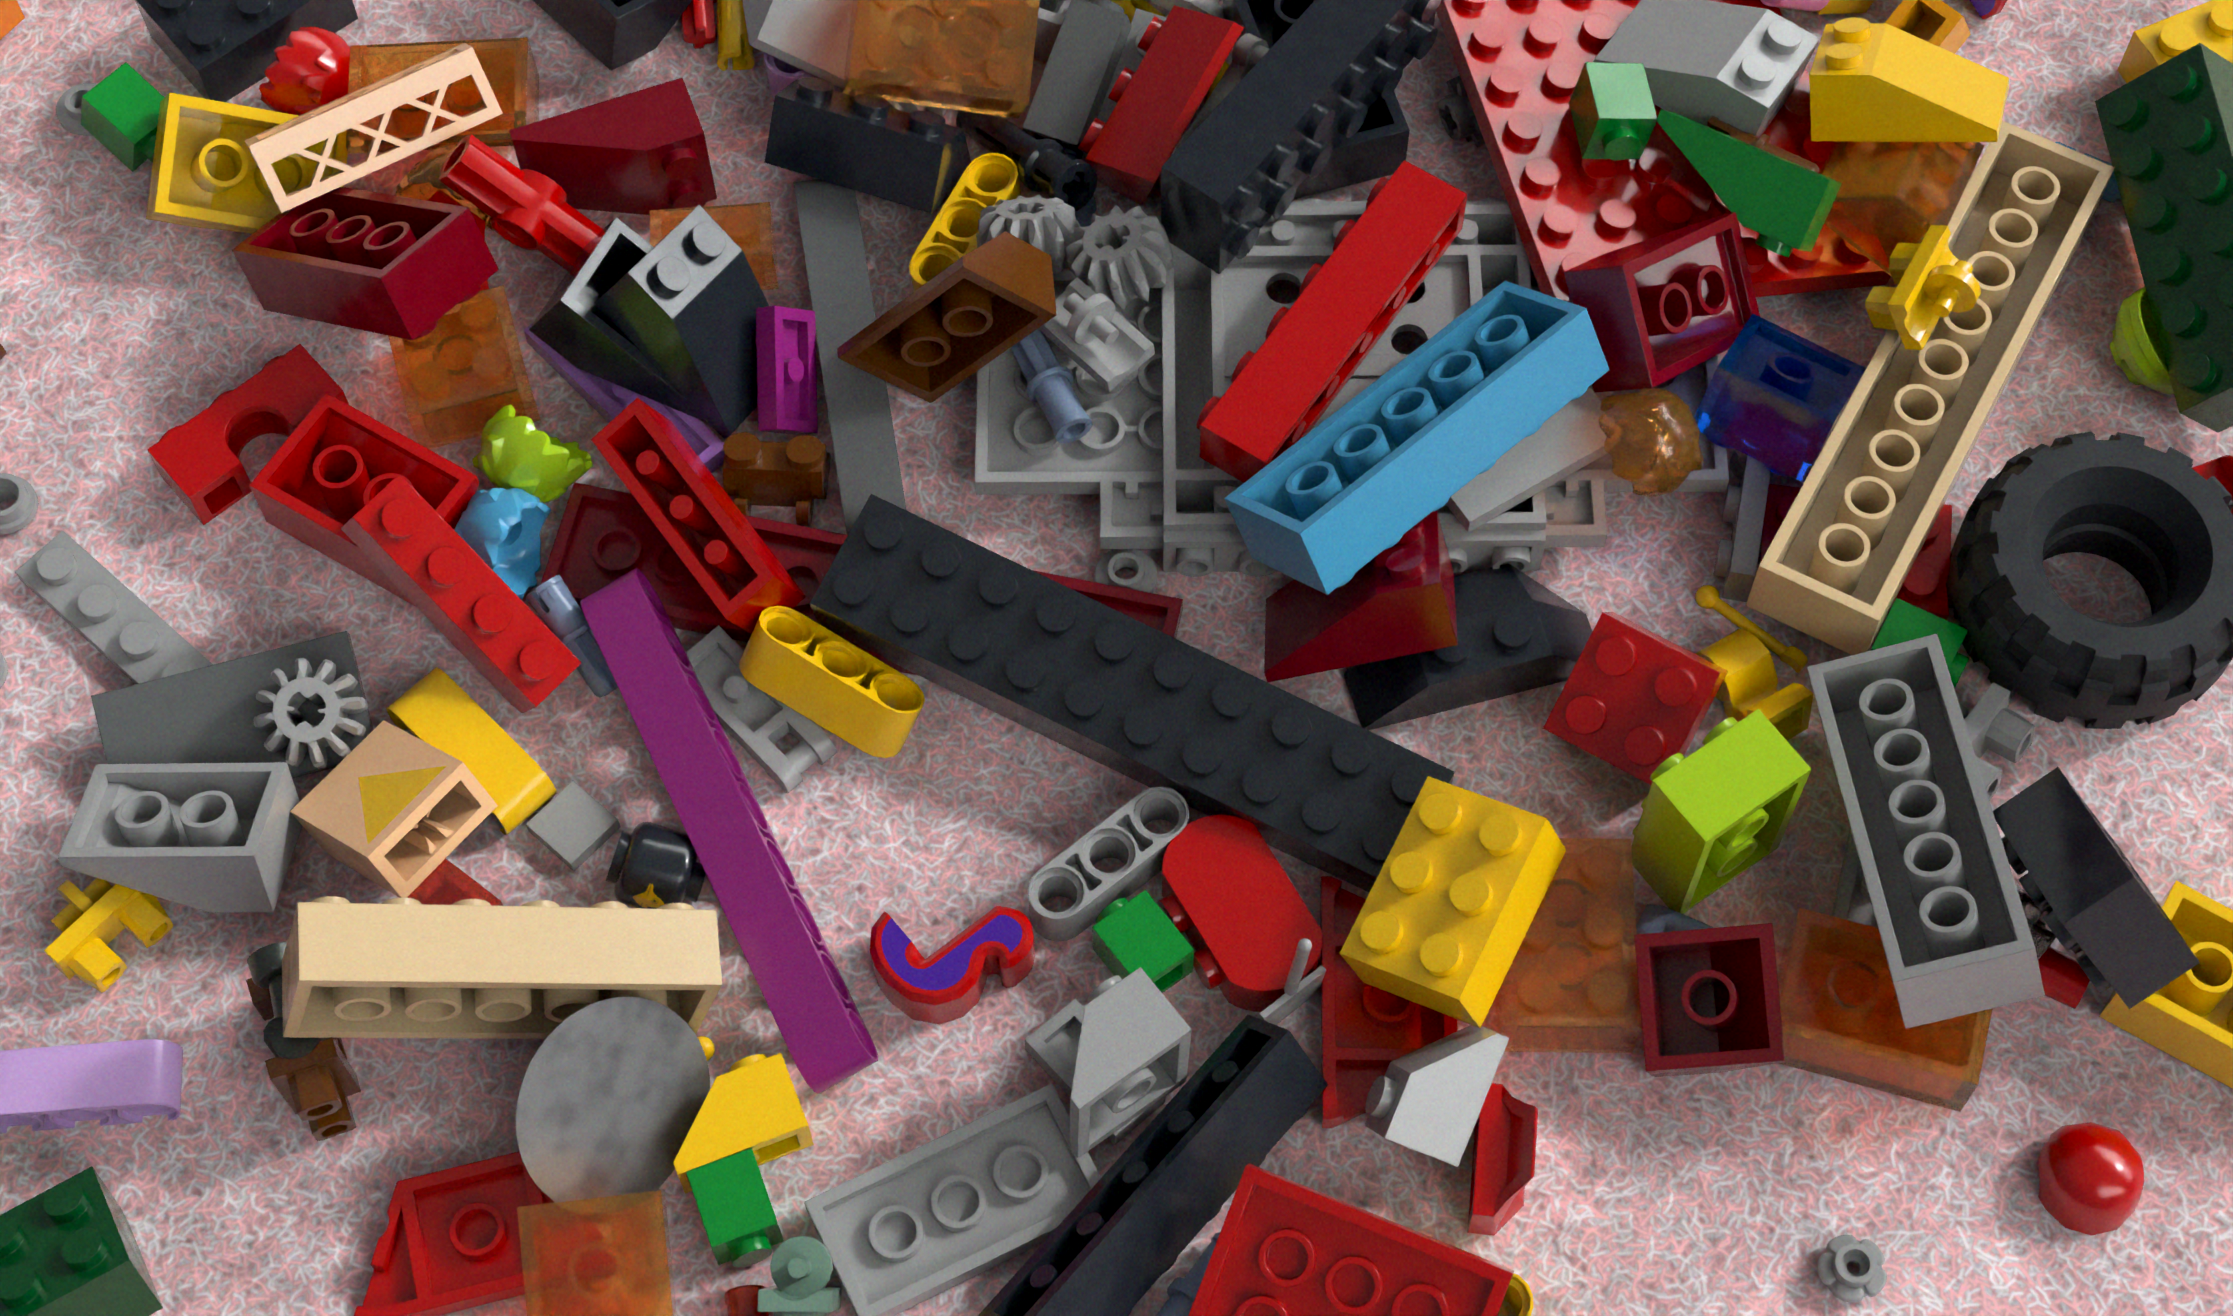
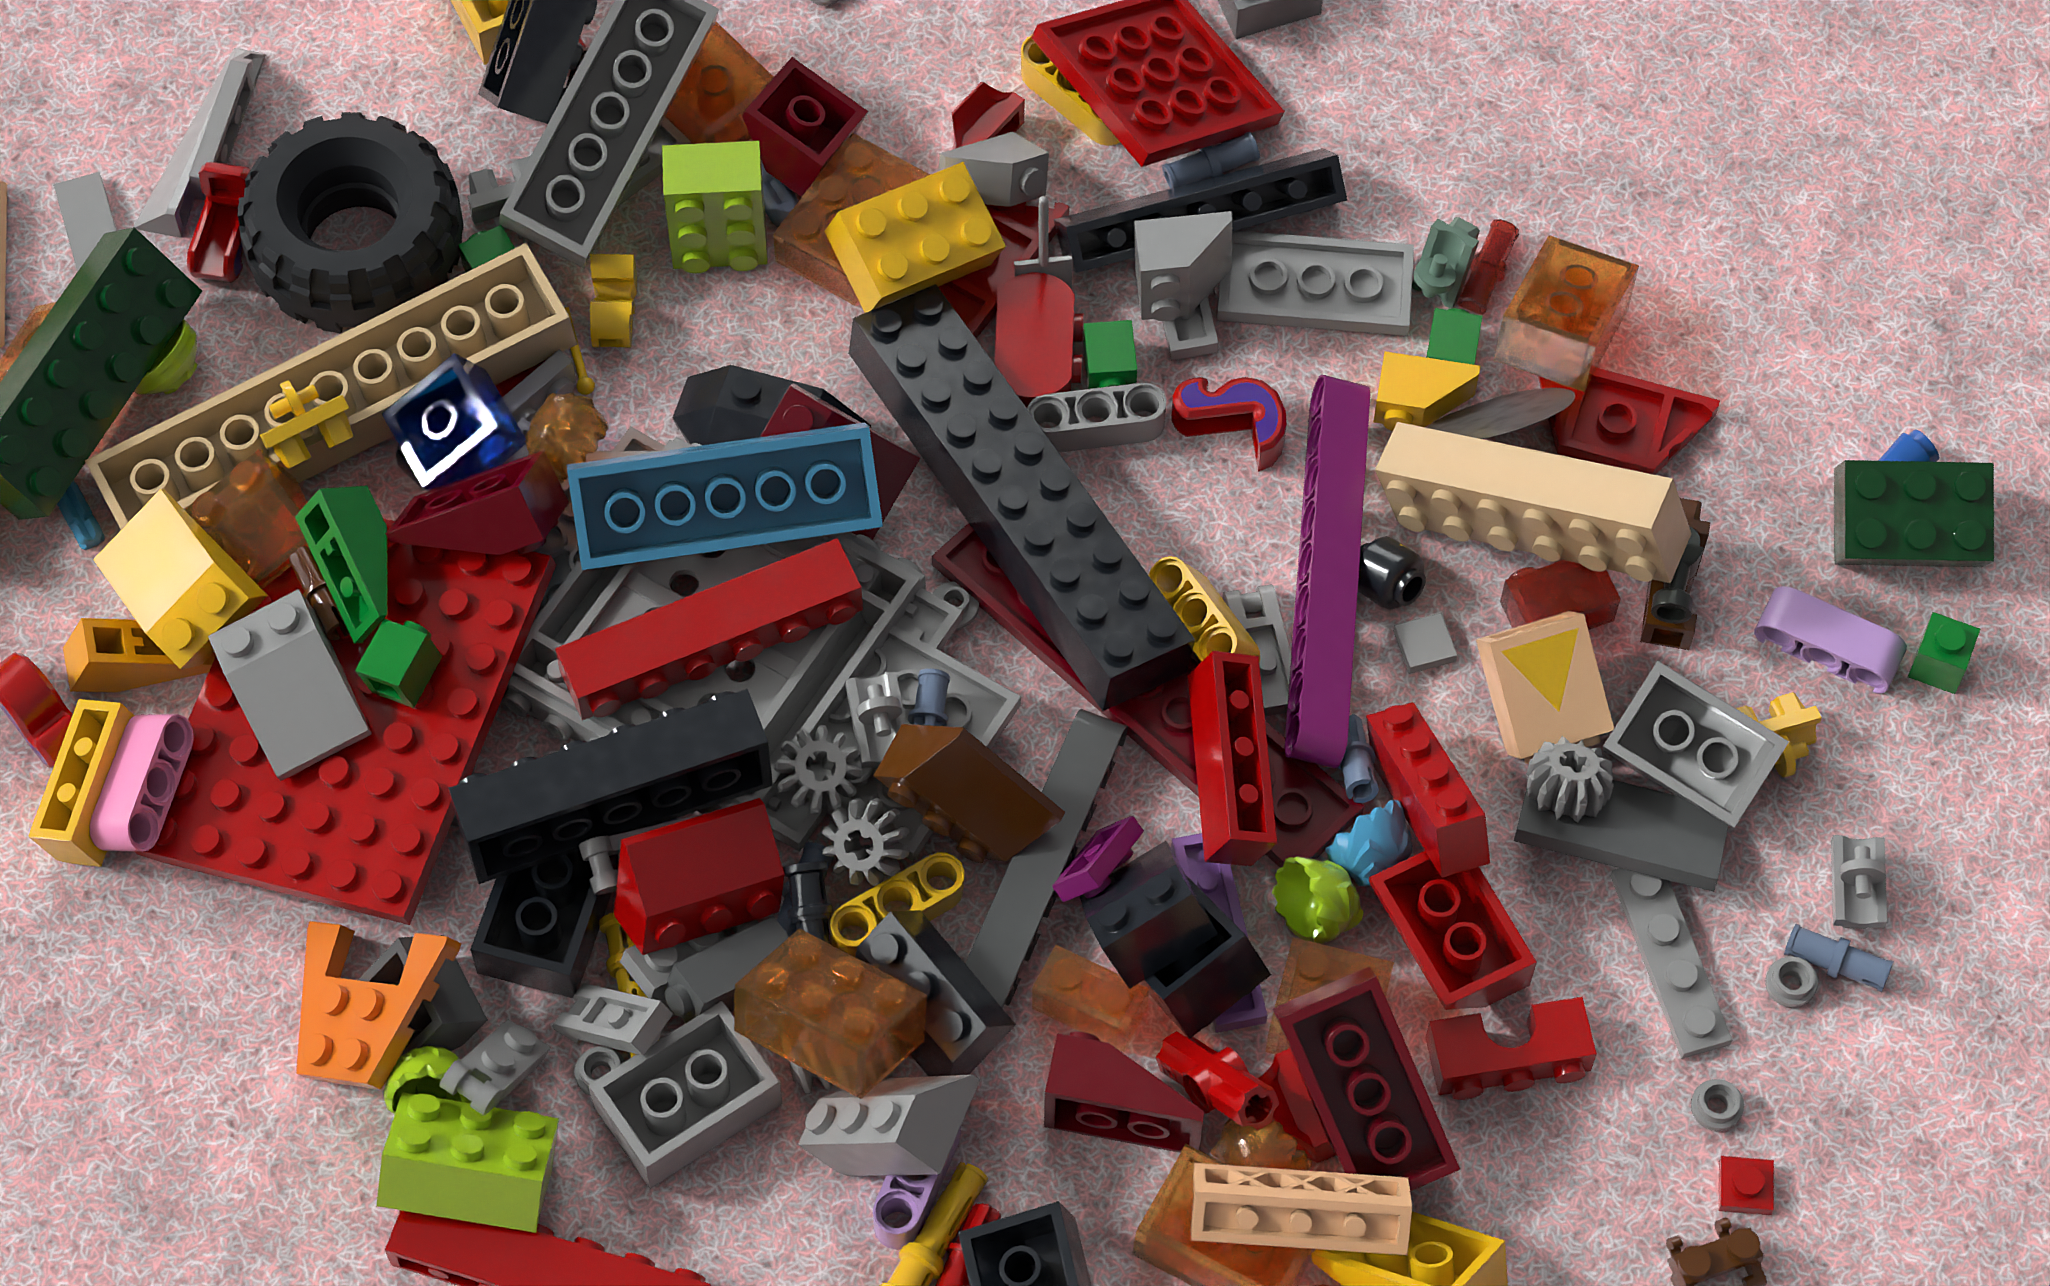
camera: 150 degrees left, 0 degrees up
(454, 723) = (1471, 722): yellow beam -> none
(776, 473) = (1148, 799): reddish brown piece -> none
(1634, 697) = (698, 315): red brick -> none

